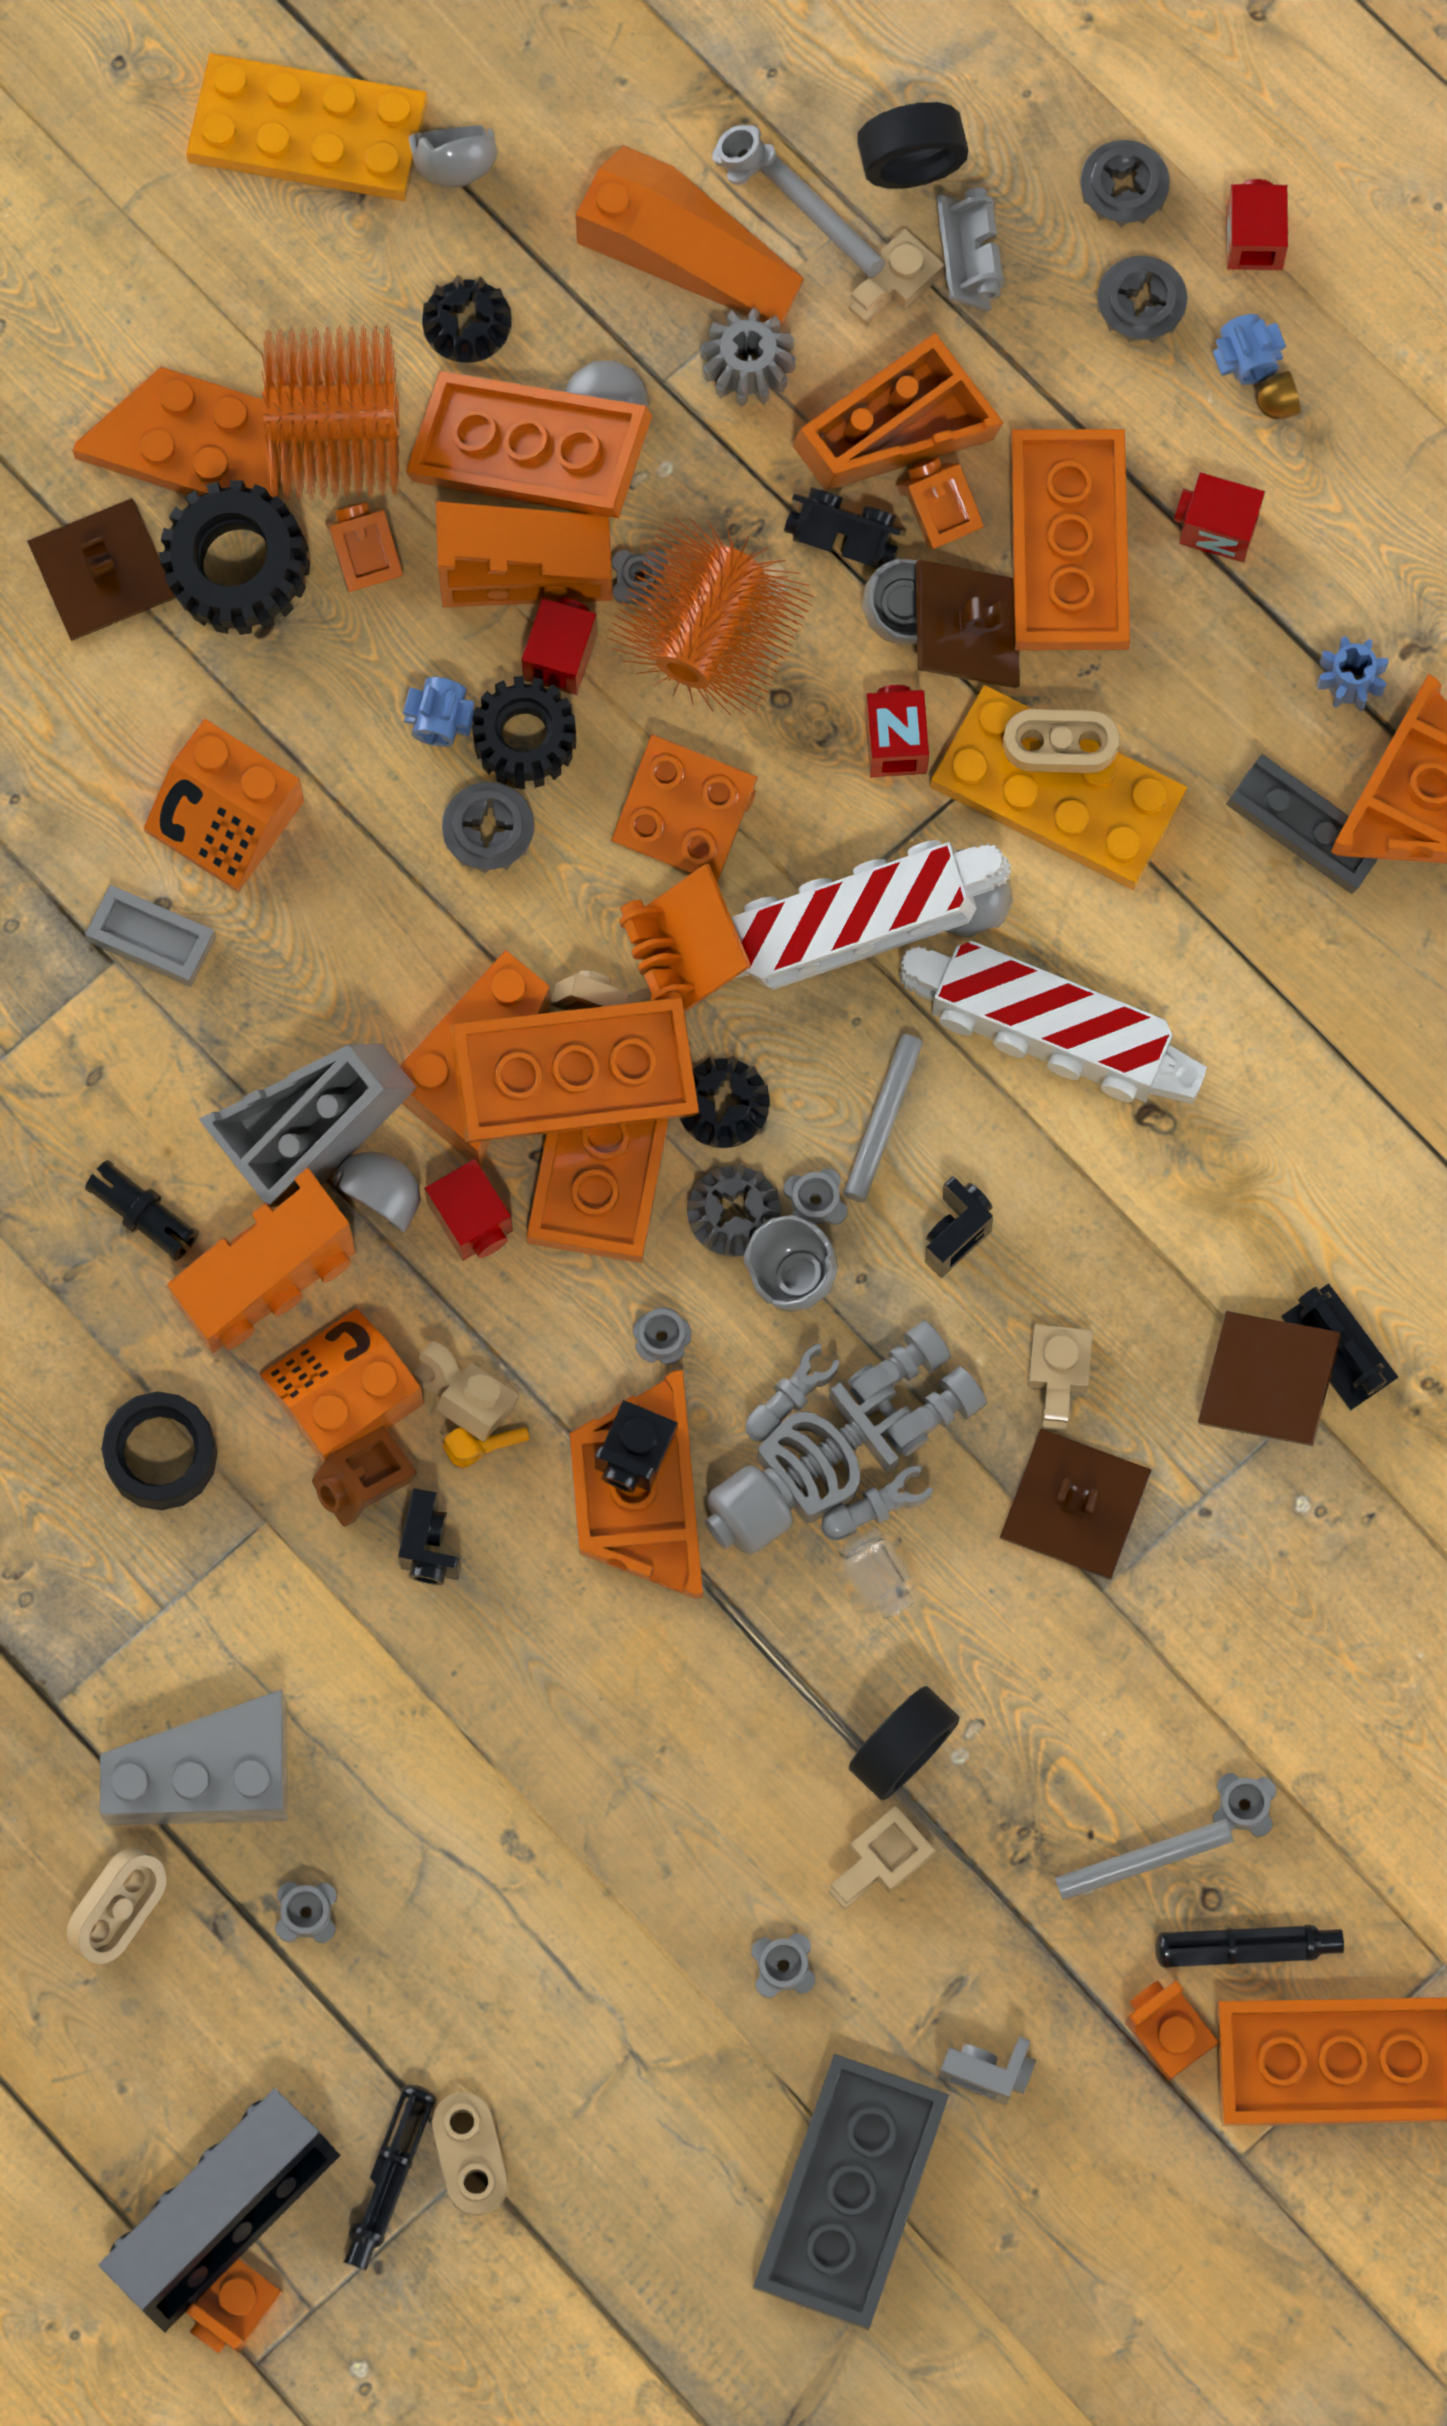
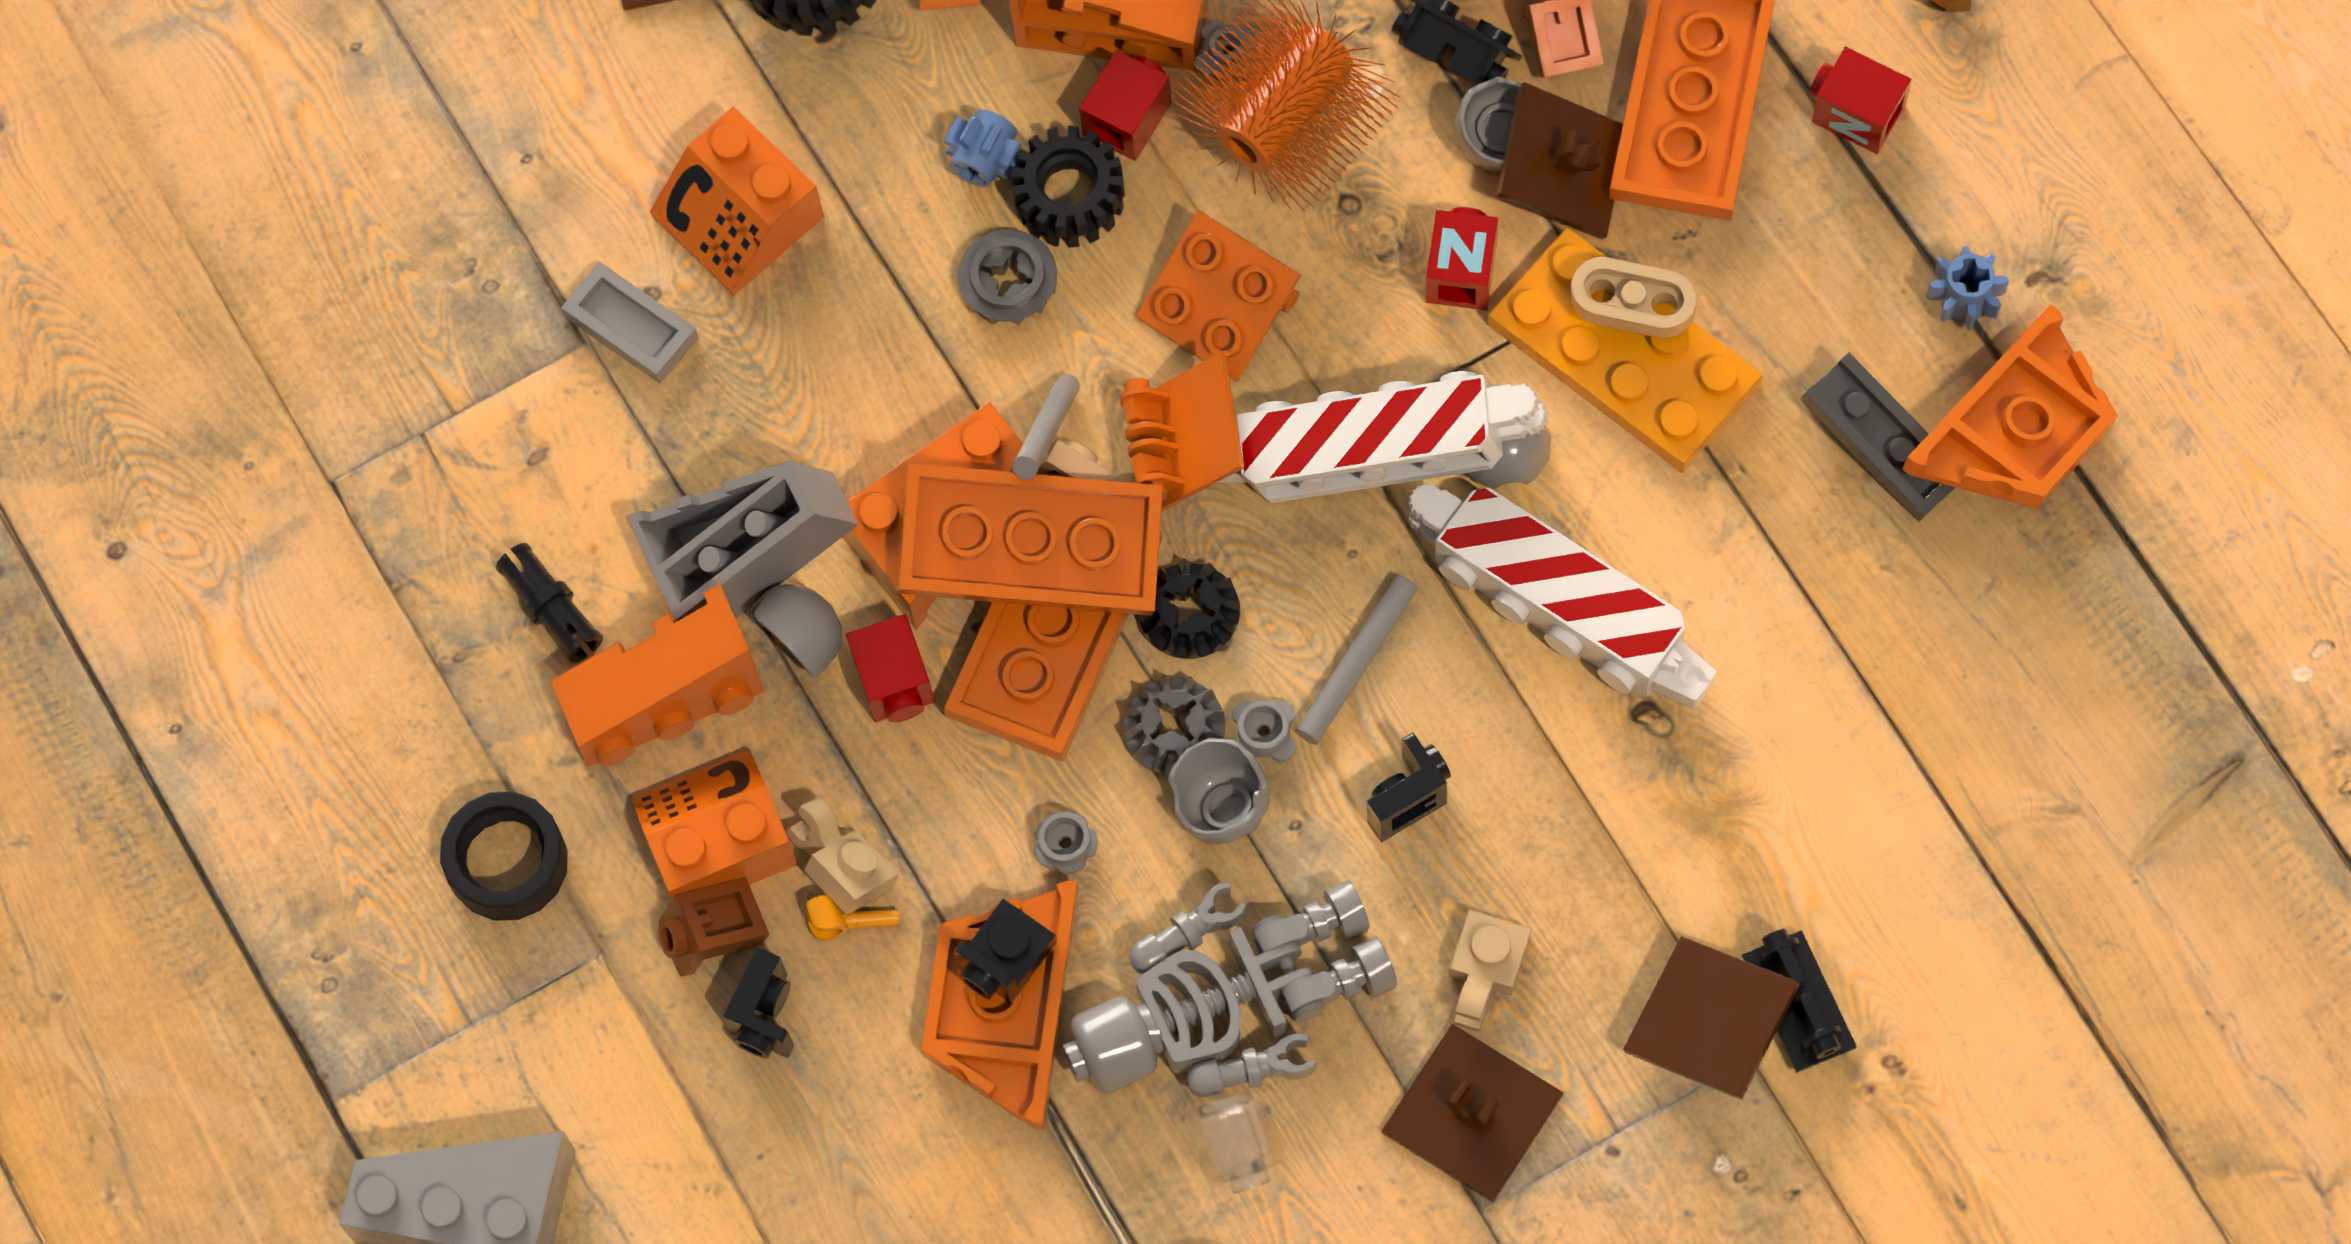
camera: 20 degrees right, 5 degrees down
(562, 962) = (1045, 426): none -> light grey bar

